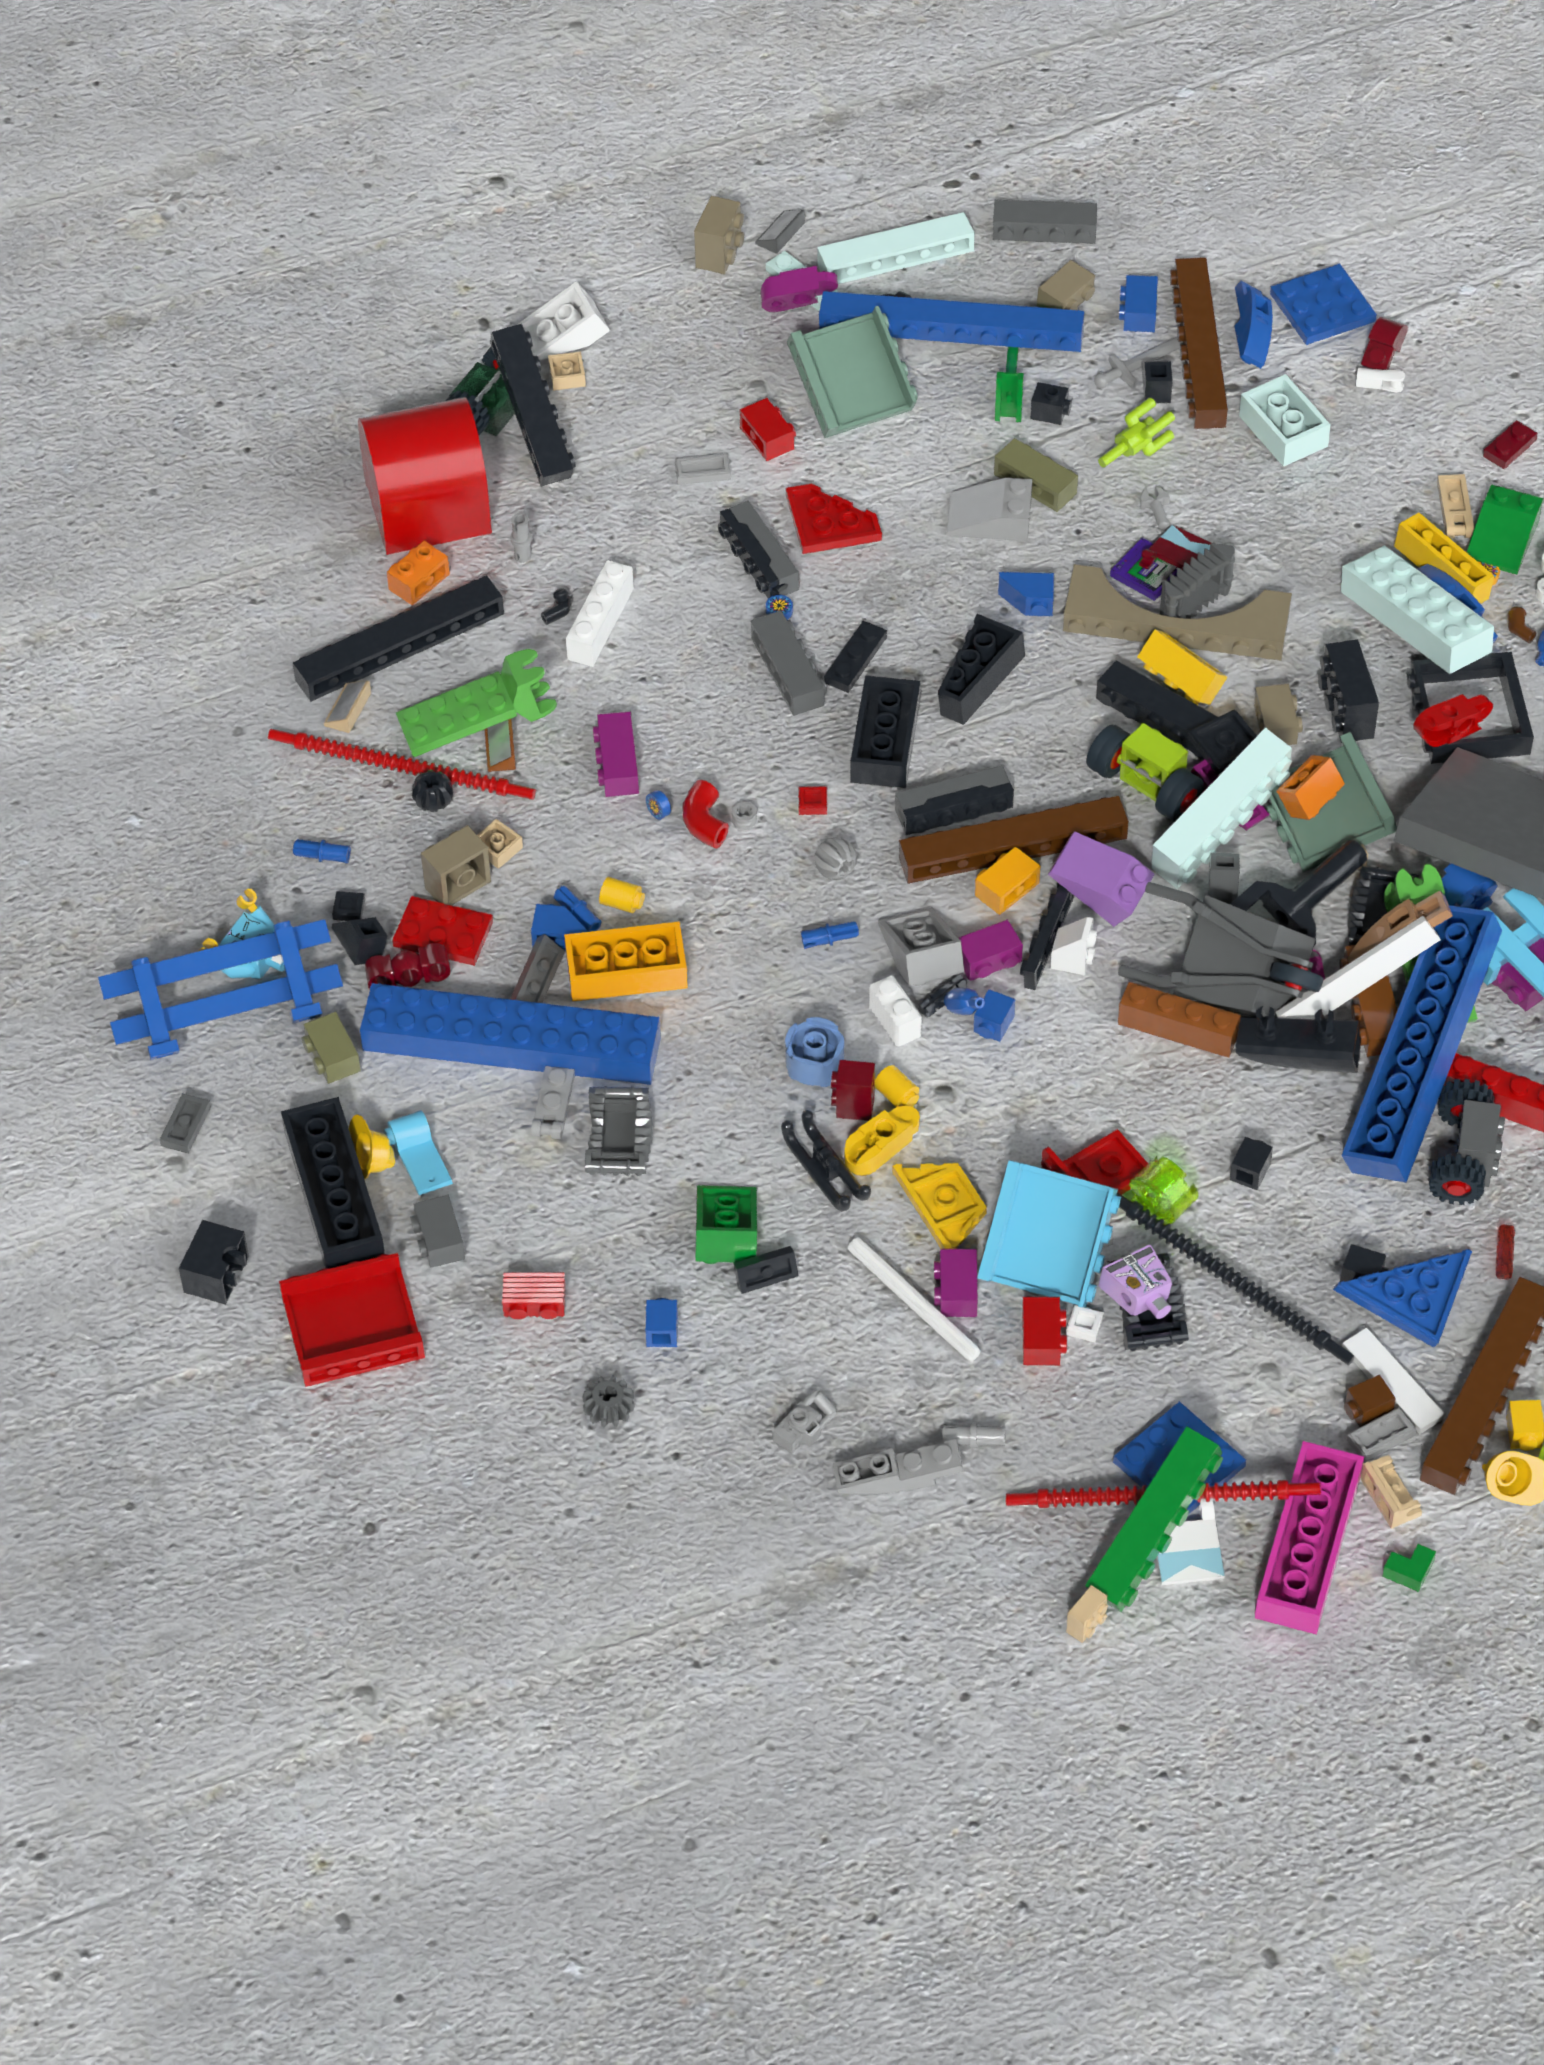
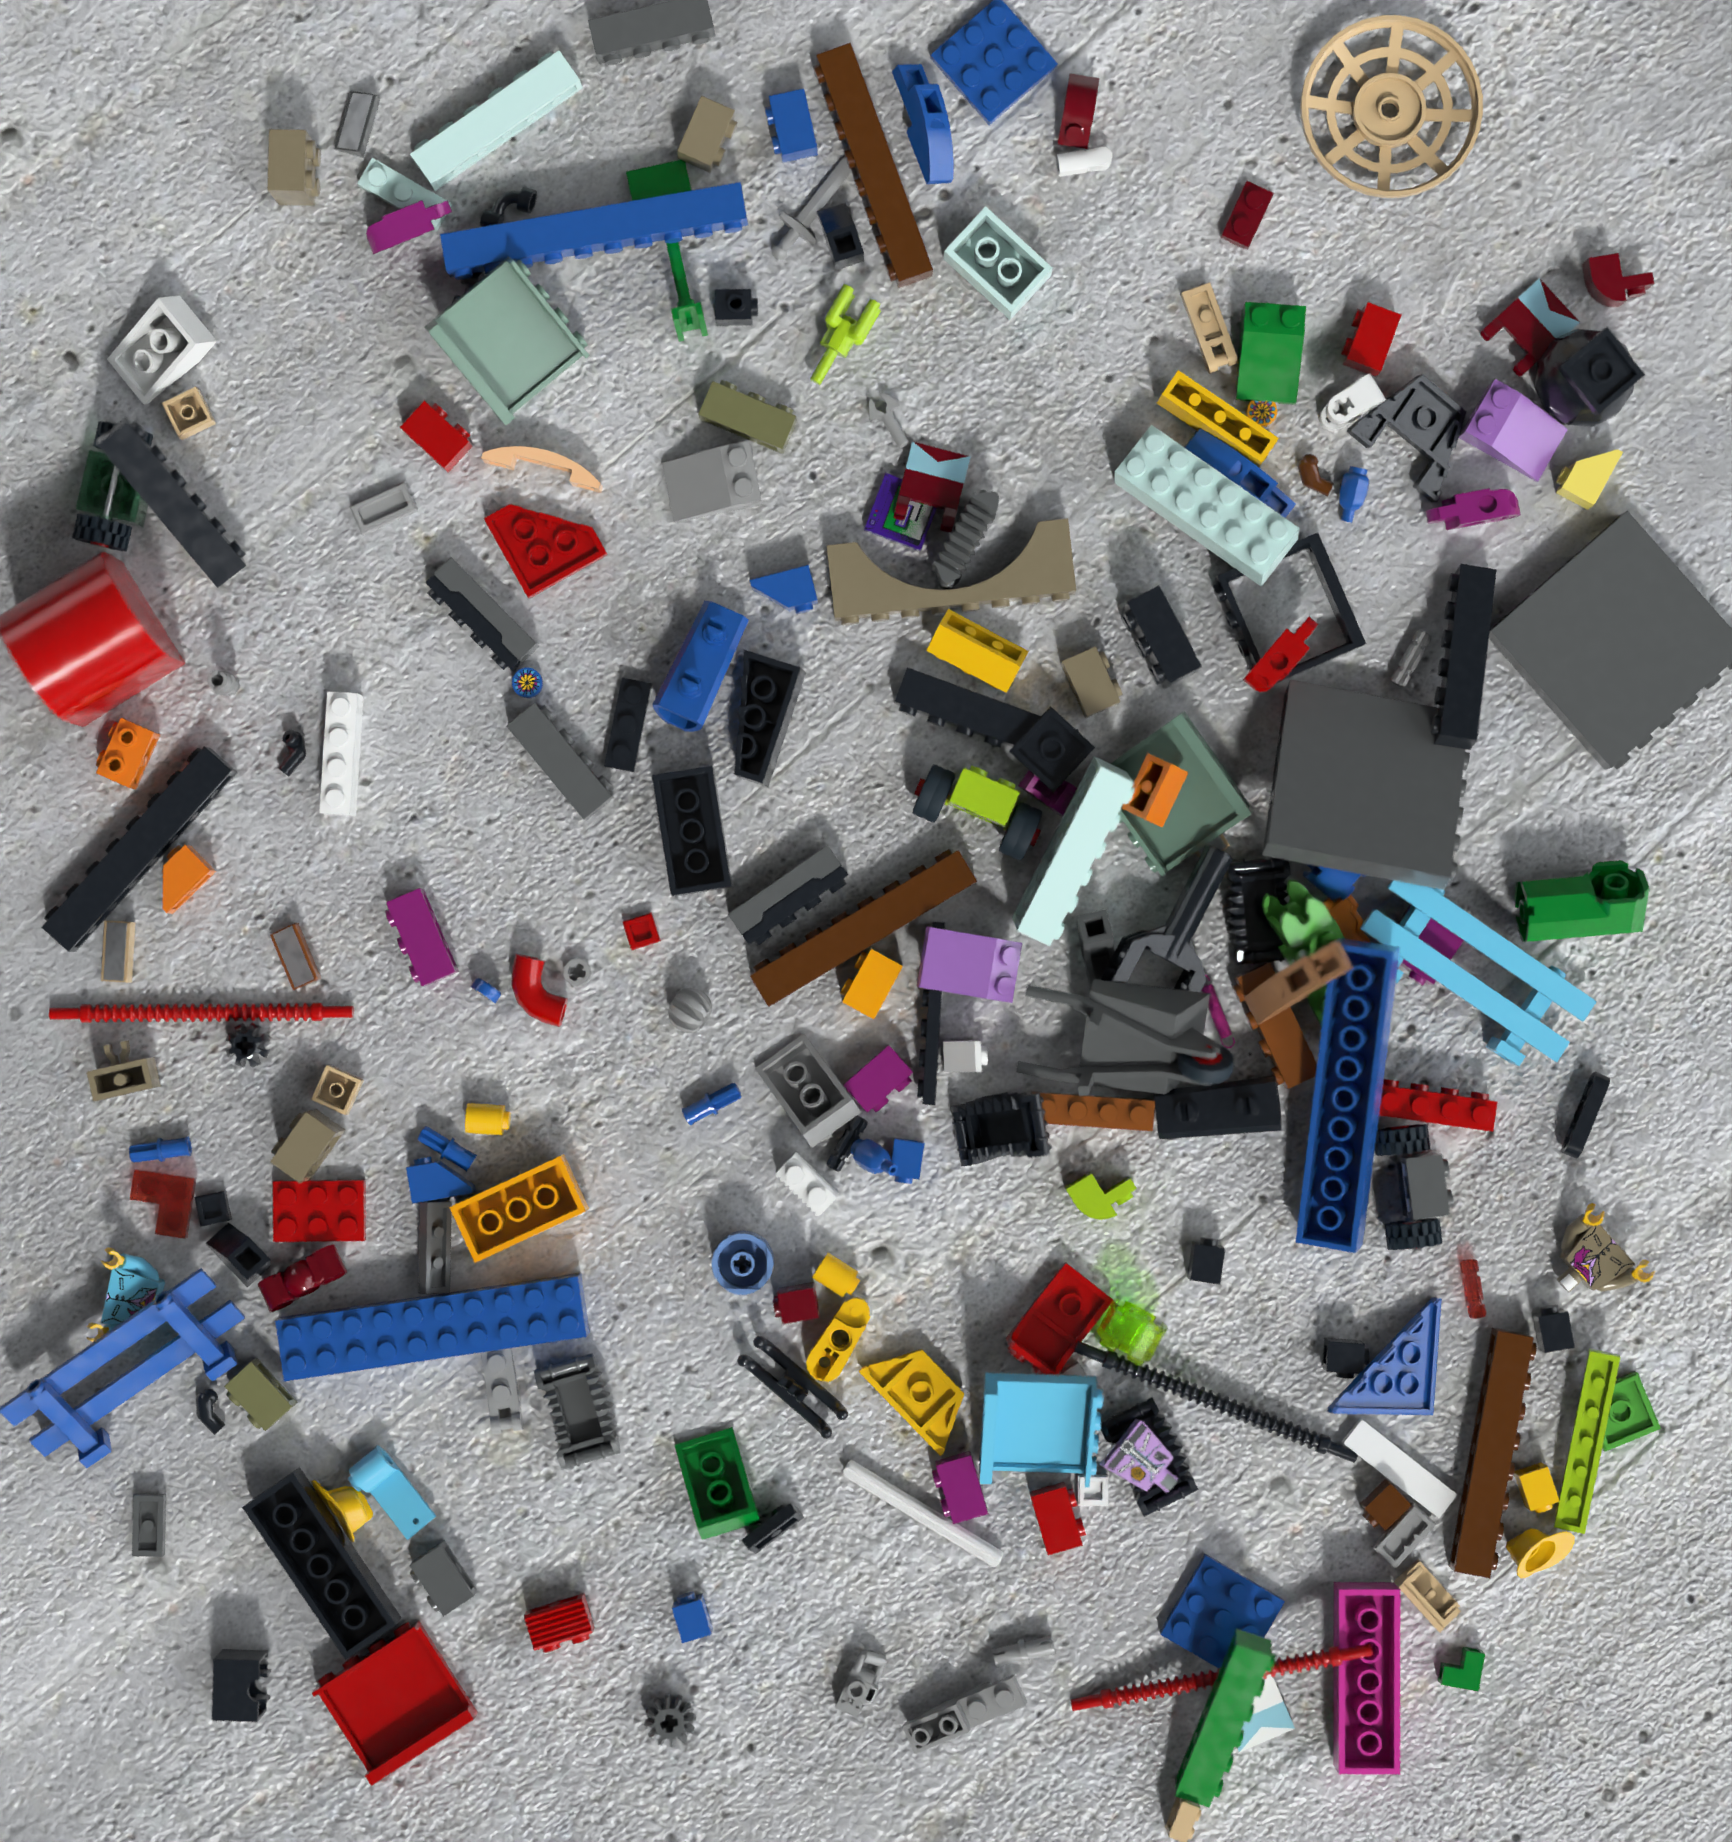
camera: 15 degrees left, 35 degrees up
(274, 1052) = (205, 1412): none -> black arm
(314, 784) = (124, 1077): none -> dark tan brick
(315, 883) = (173, 1195): none -> clear red plate
(428, 665) = (183, 876): none -> orange slope
(478, 705) = (252, 924): bright green hinge -> none
(850, 461) = (507, 457): none -> light nougat slope
(932, 623) = (700, 667): none -> blue piece
(1090, 1002) = (1001, 1127): none -> black piece
(1161, 1091) = (1097, 1203): none -> lime brick
(1364, 971) = (1284, 1021): white tile -> none

